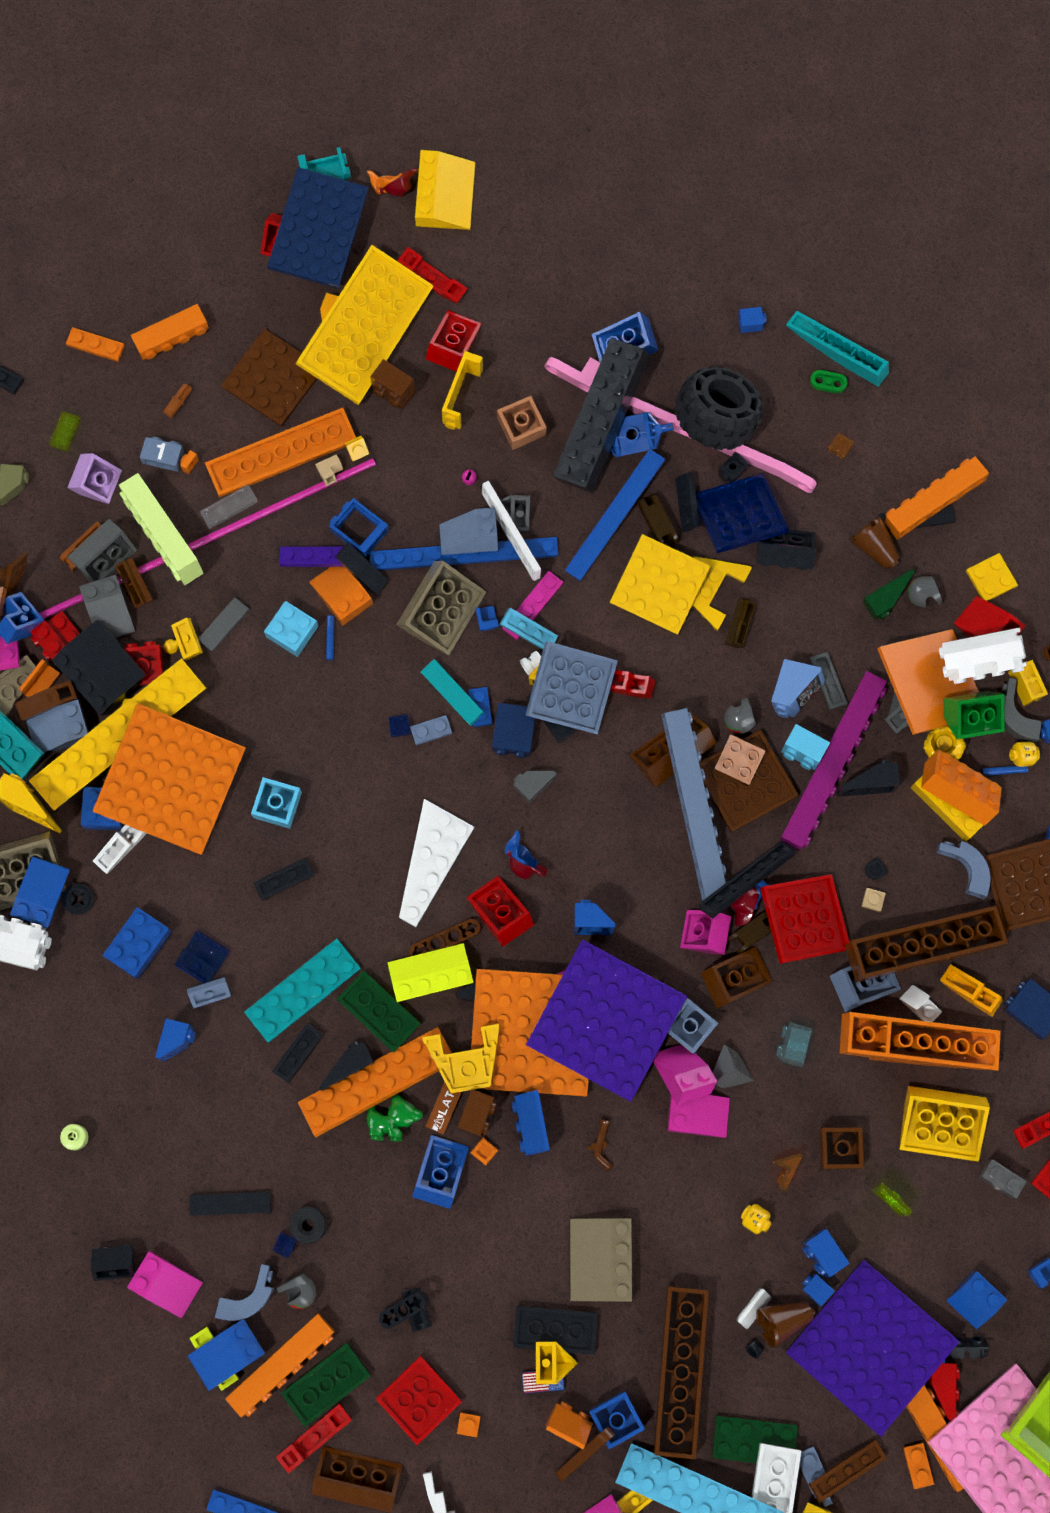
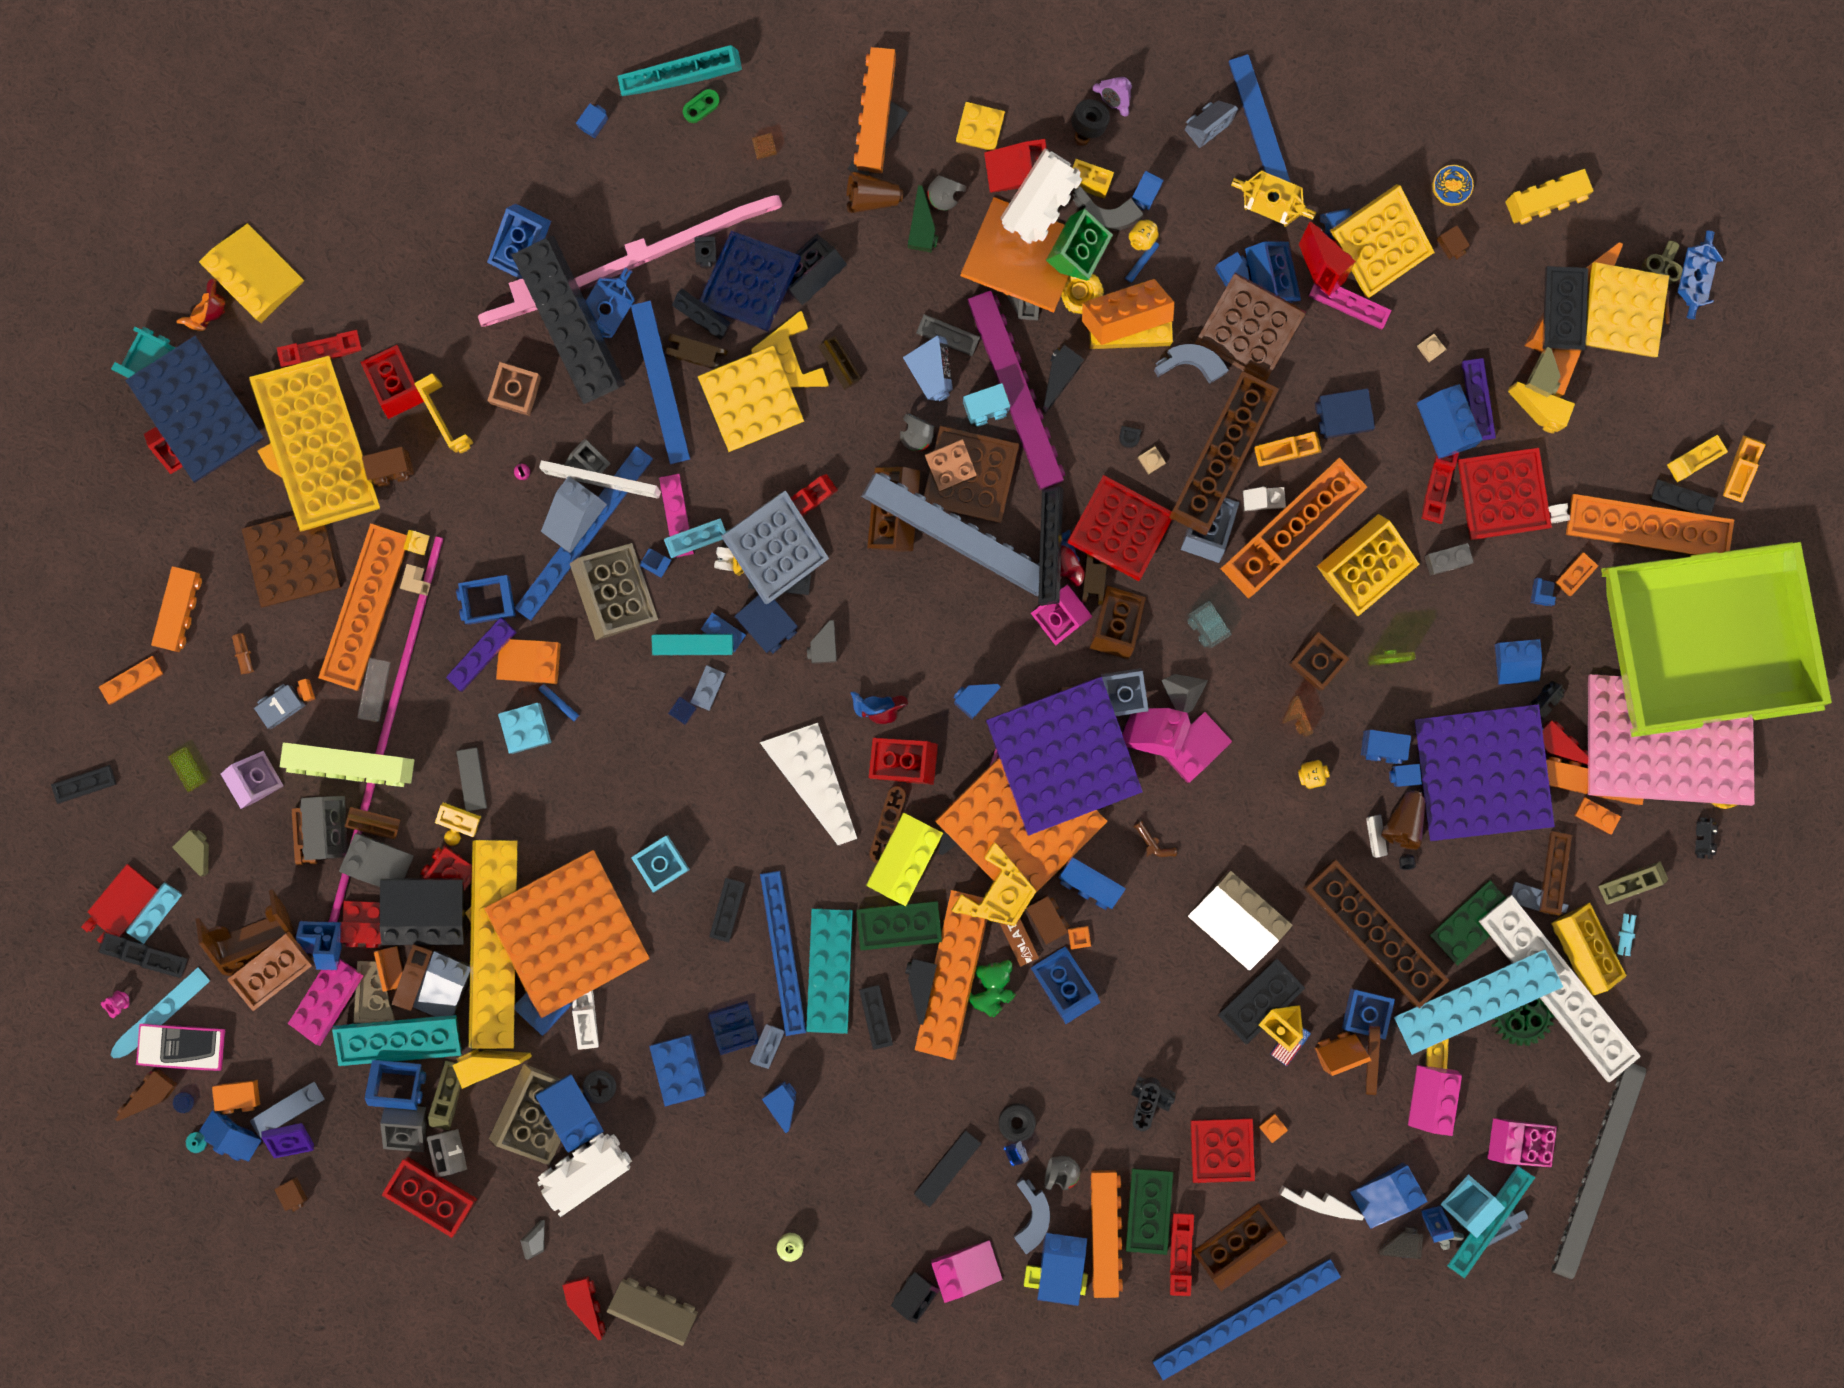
camera: 50 degrees left, 10 degrees up
(286, 946) = (783, 953): none -> blue tile
(361, 568) = (524, 628): black tile -> none
(719, 408) = (651, 239): black tyre -> none

